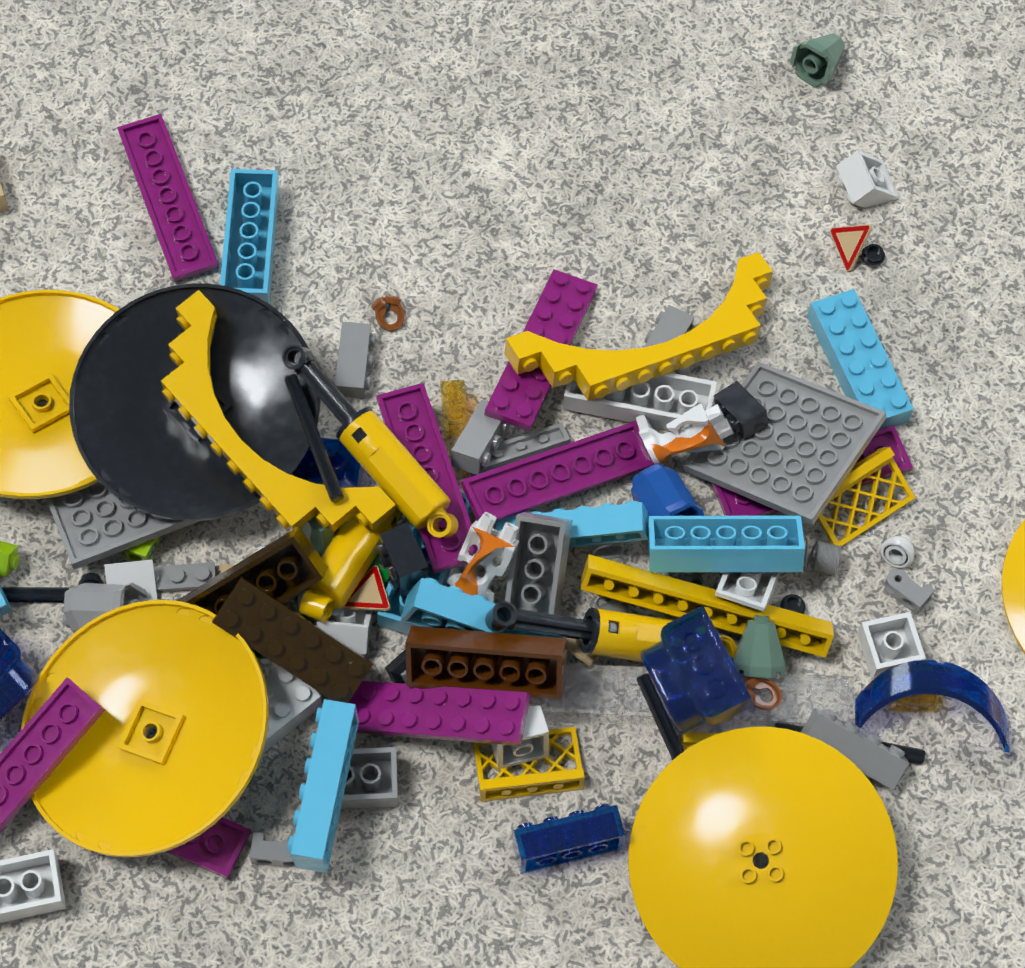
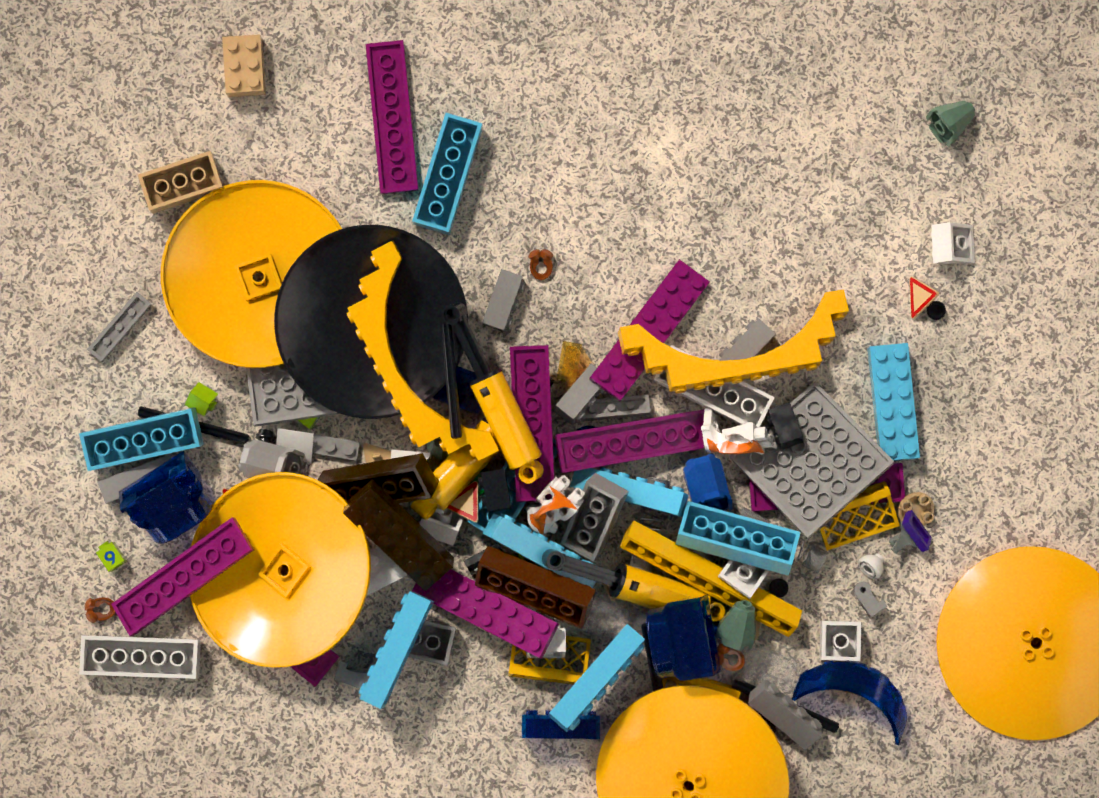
camera: 20 degrees right, 20 degrees up
(599, 752) = (597, 677): none -> medium azure brick
(929, 474) = (920, 504): none -> tan dish
(933, 501) = (912, 534): none -> dark purple piece

